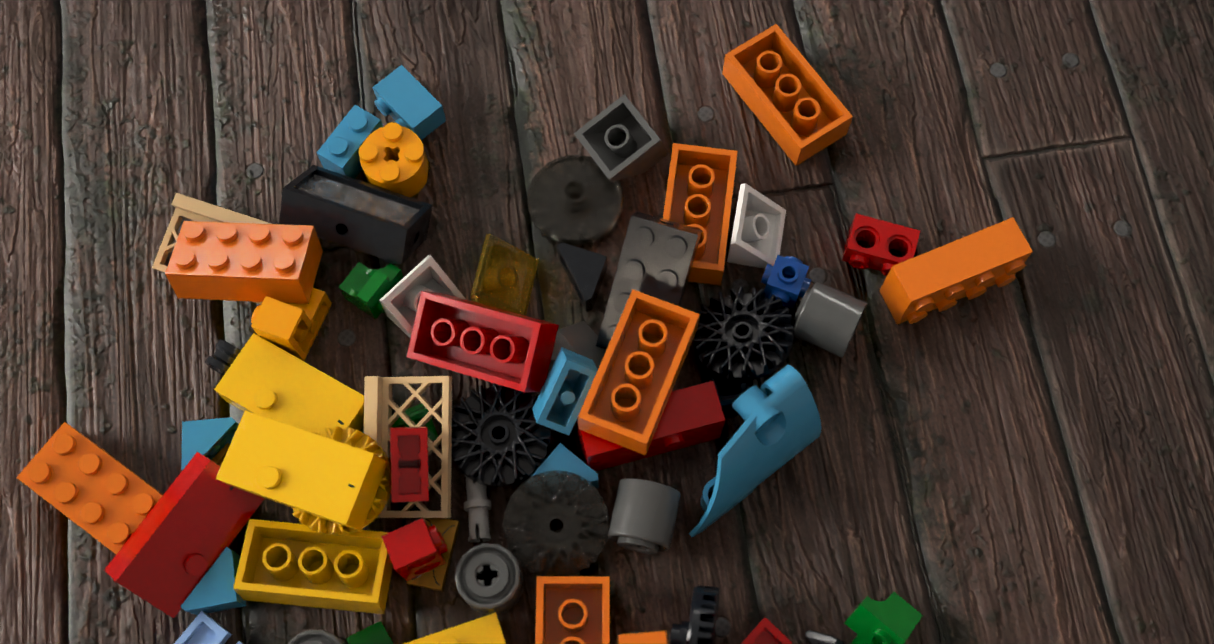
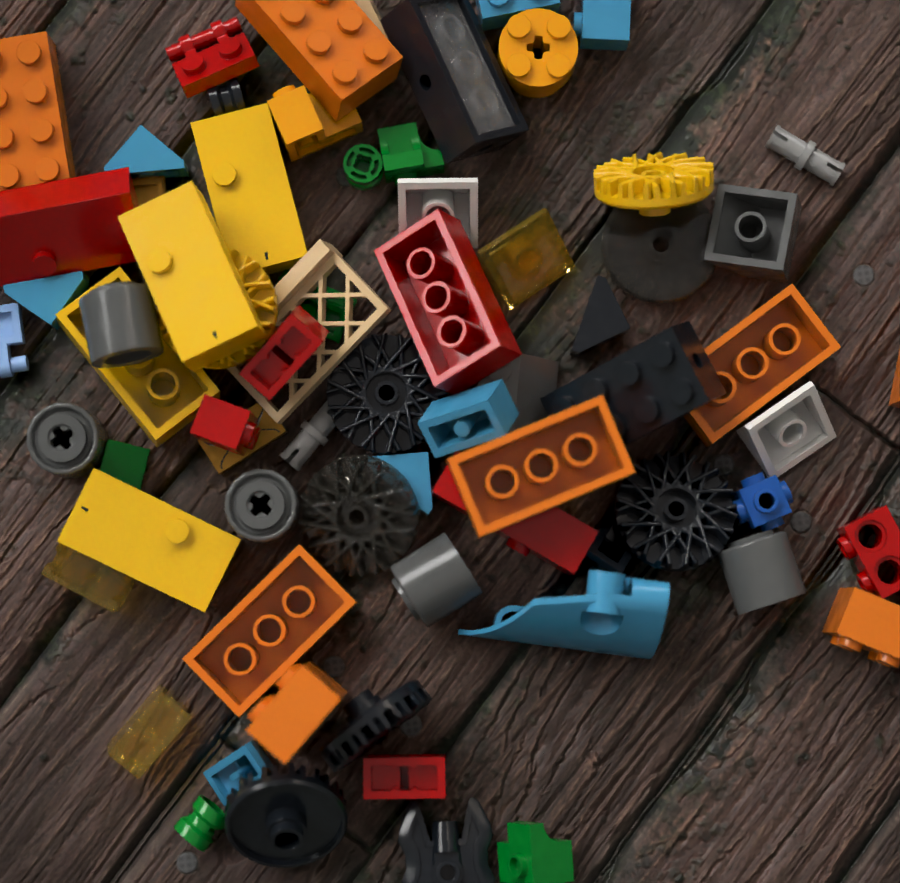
camera: 40 degrees right, 15 degrees up
(192, 343) = (215, 64): none -> red plate
(283, 548) = (120, 324): none -> dark grey piece
(355, 326) = (364, 174): none -> green wheel
(538, 164) = (653, 184): none -> yellow wheel
(606, 80) = (805, 155): none -> light grey pin

